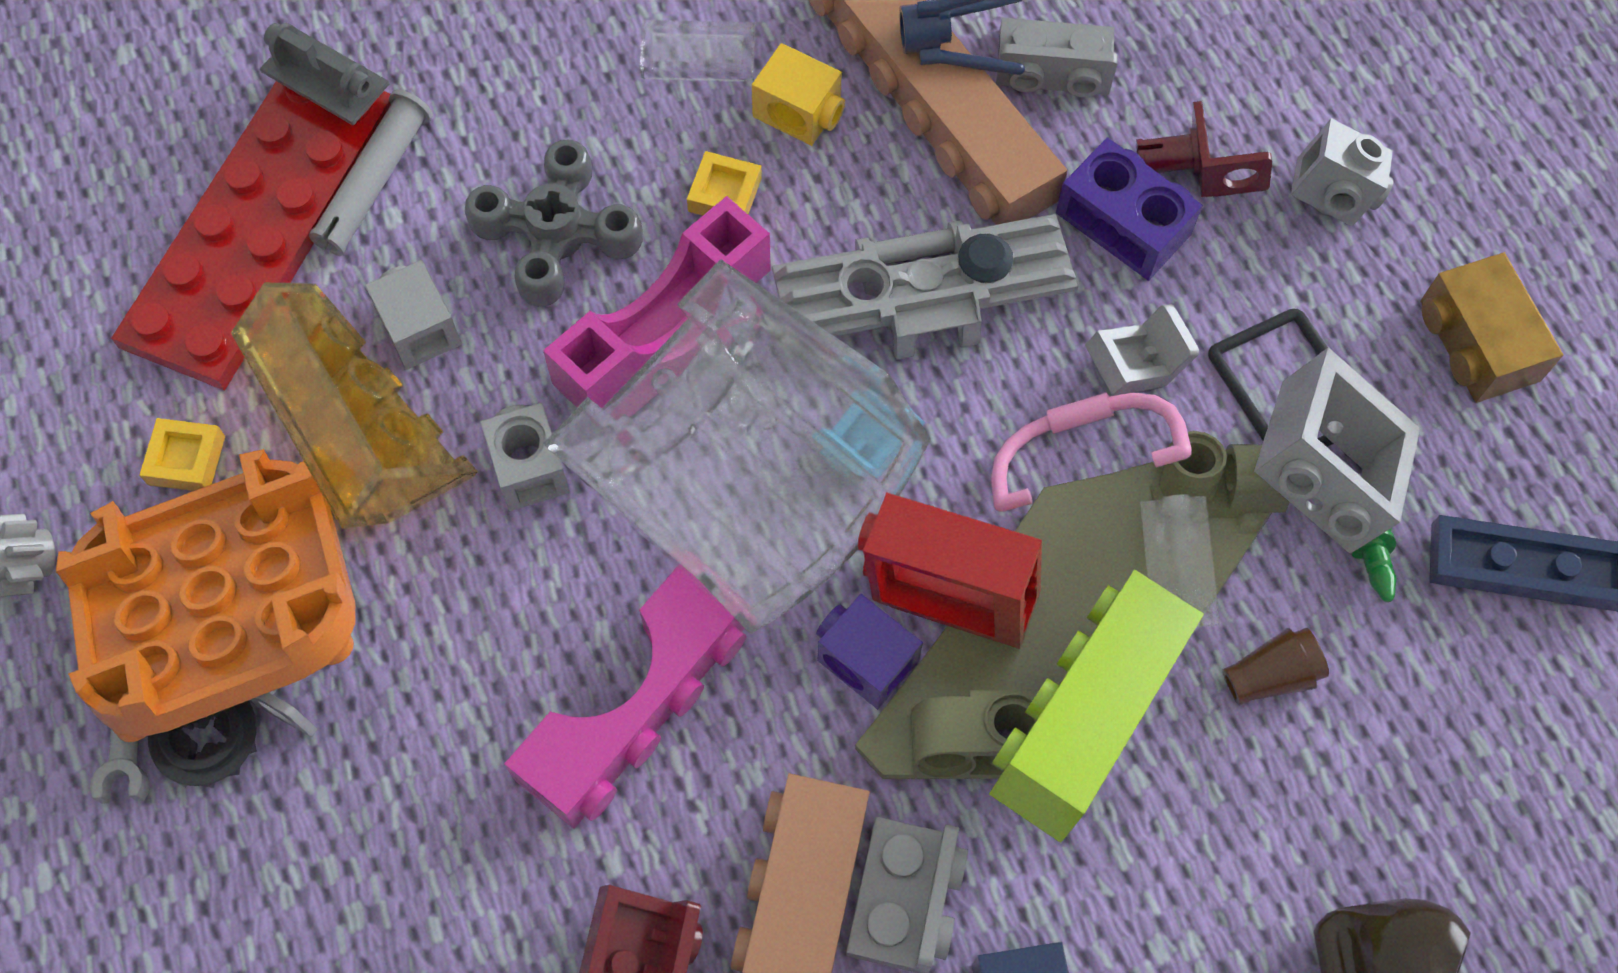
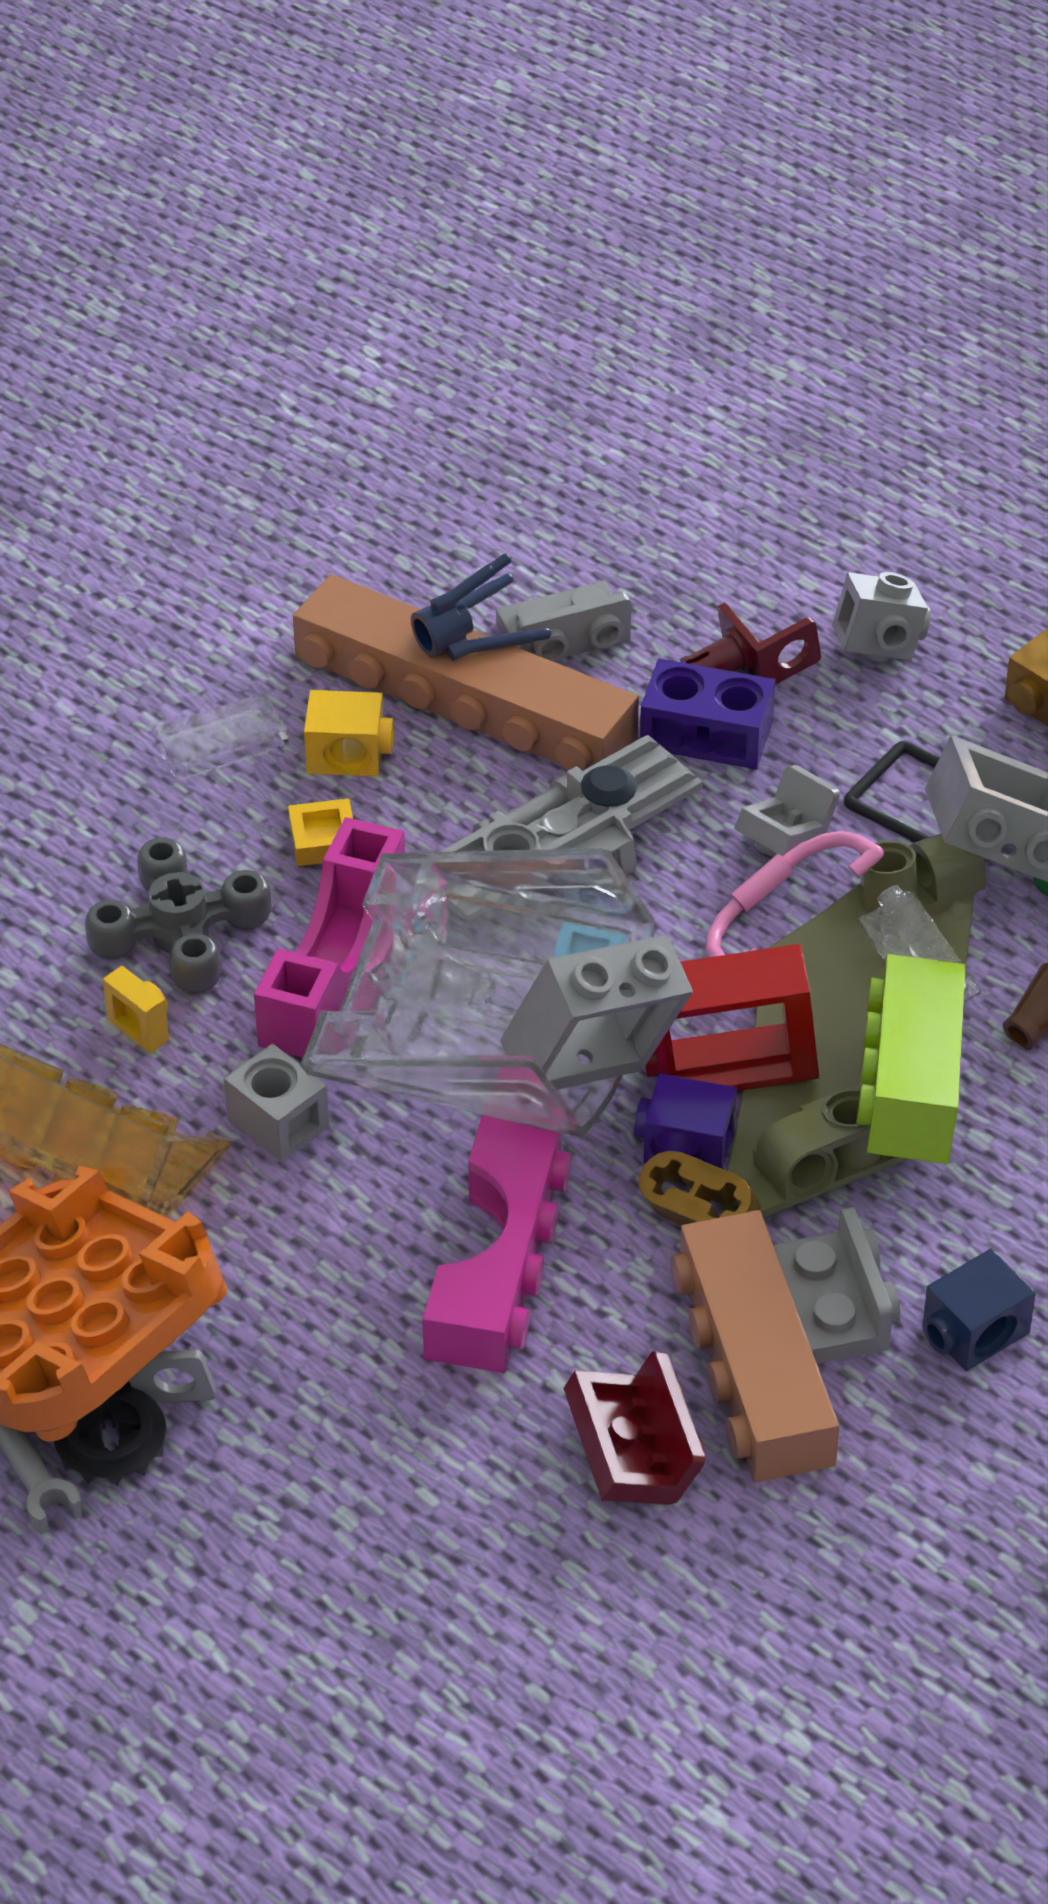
camera: 25 degrees left, 20 degrees down
(413, 313) = (92, 1033): light grey brick -> none
(467, 304) = (136, 1008): none -> yellow plate
(802, 537) = (600, 1005): none -> light grey window
(848, 726) = (705, 1184): none -> pearl gold beam

